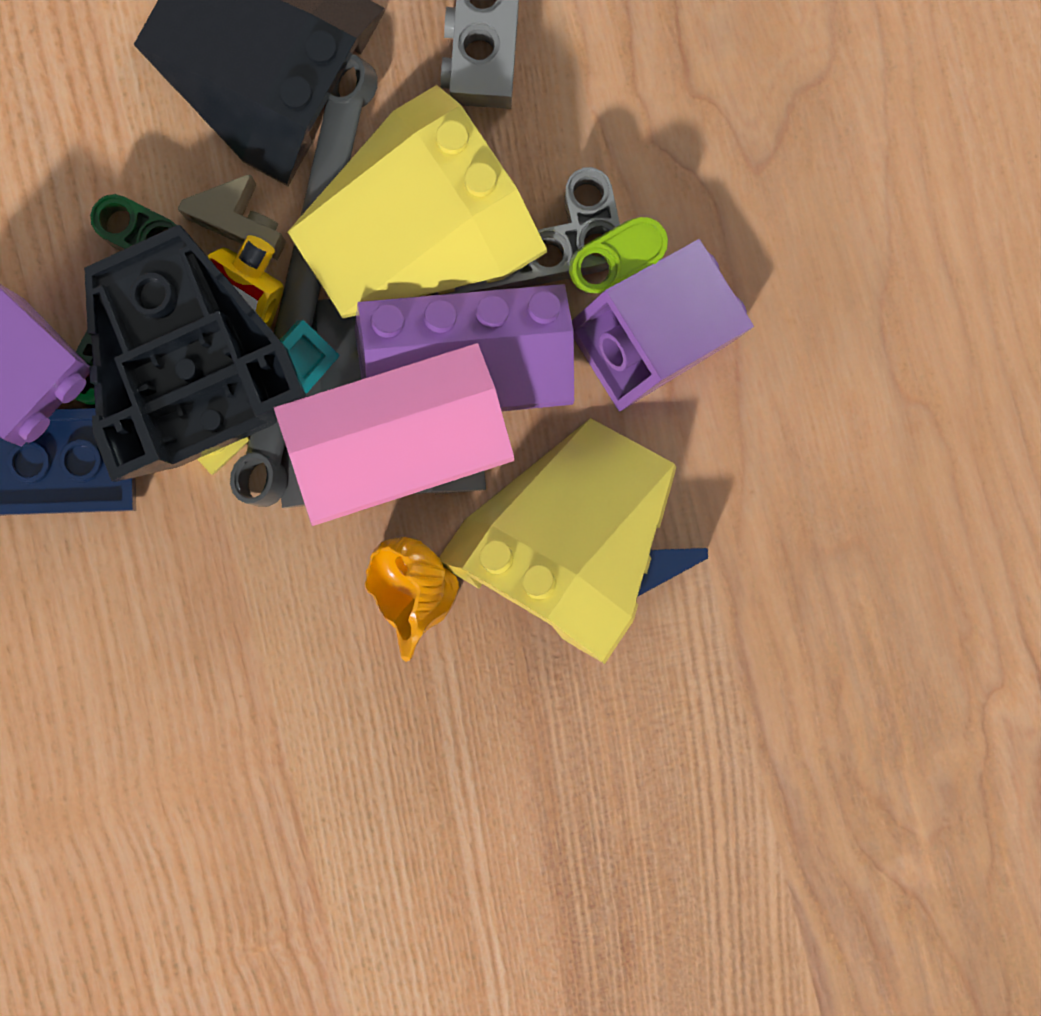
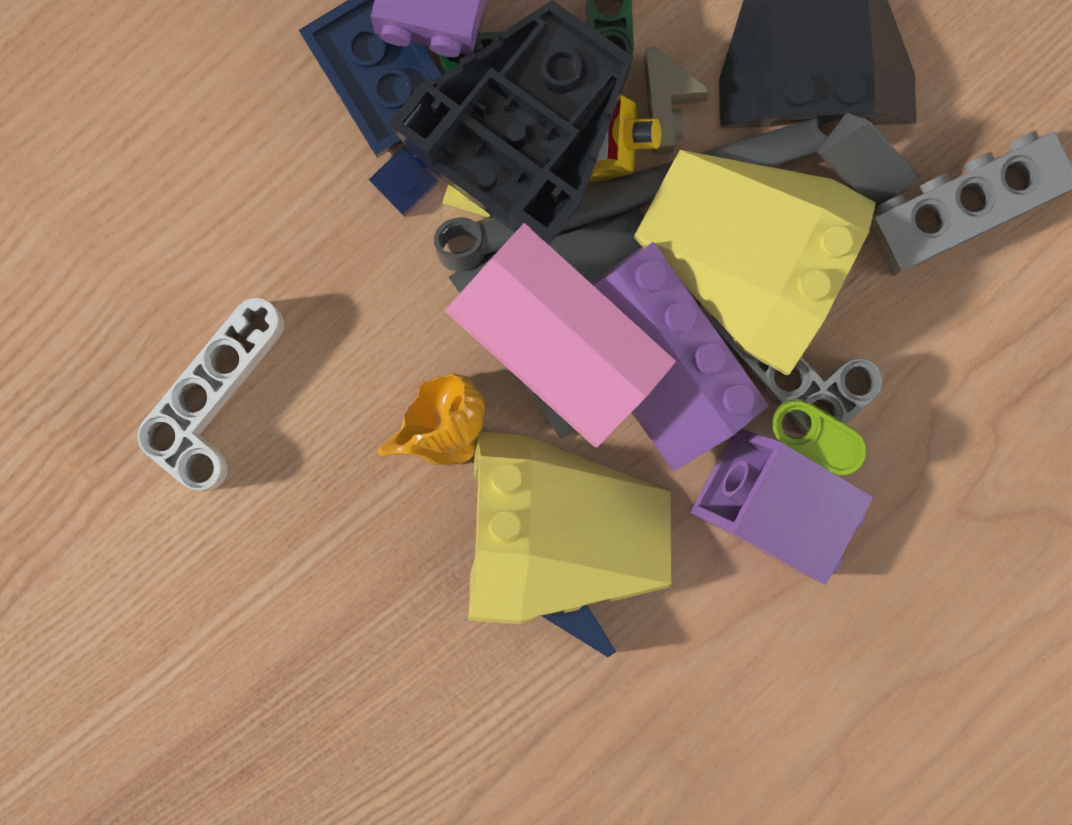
camera: 70 degrees right, 0 degrees up
(171, 498) = (404, 180): none -> clear blue plate
(264, 773) = (219, 389): none -> white beam
(309, 353) = (587, 225): teal plate -> none
(393, 70) = (866, 160): none -> dark grey slope

